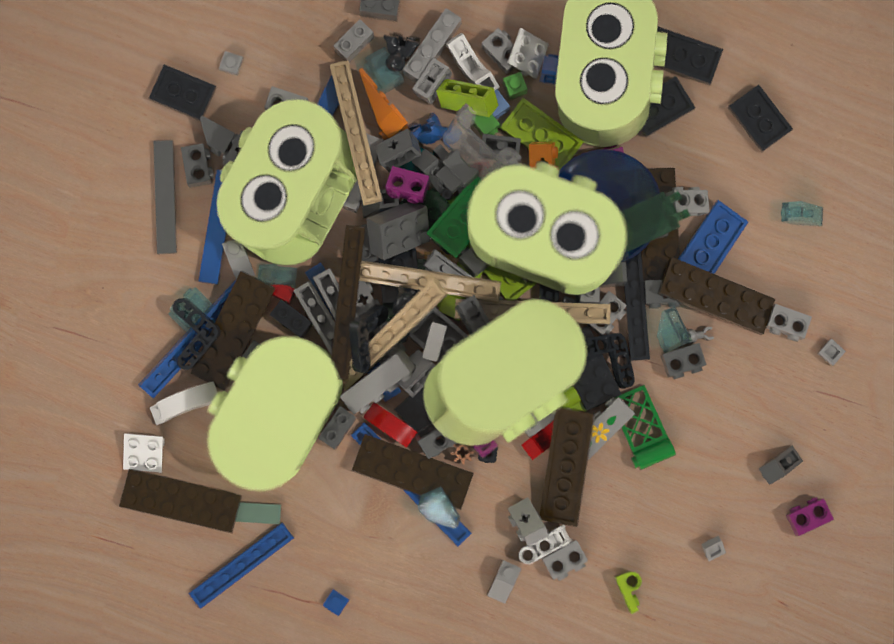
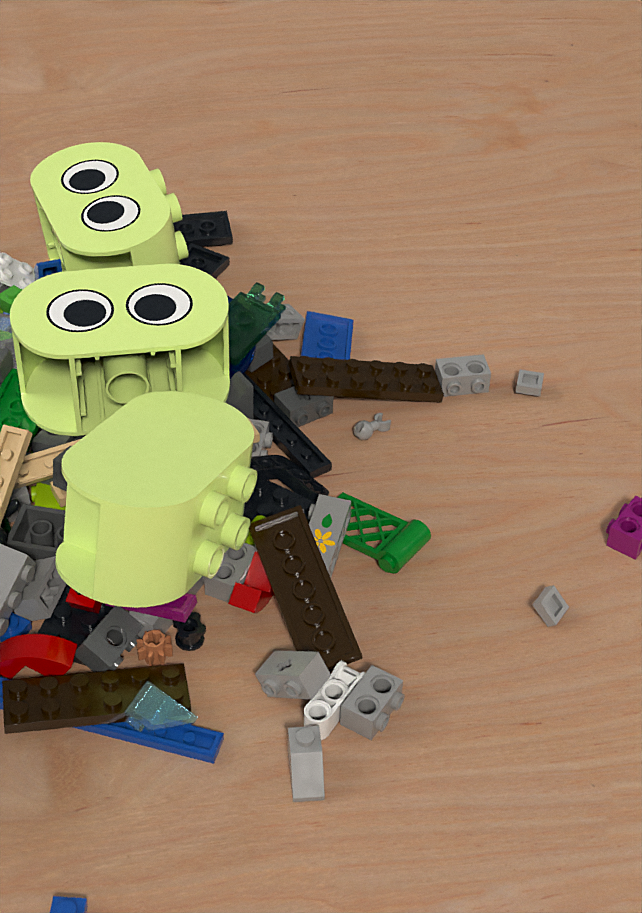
camera: 30 degrees left, 40 degrees down
(434, 341) = (45, 535): white sticker -> none
(630, 600) = (473, 693): lime plate -> none
(672, 330) = (339, 428): clear light blue slope -> none
(682, 355) = (371, 450): dark grey brick -> none
(760, 118) = (303, 245): black plate -> none
(780, 465) = (558, 496): dark grey slope -> none
(801, 213) = (402, 292): clear light blue slope -> none

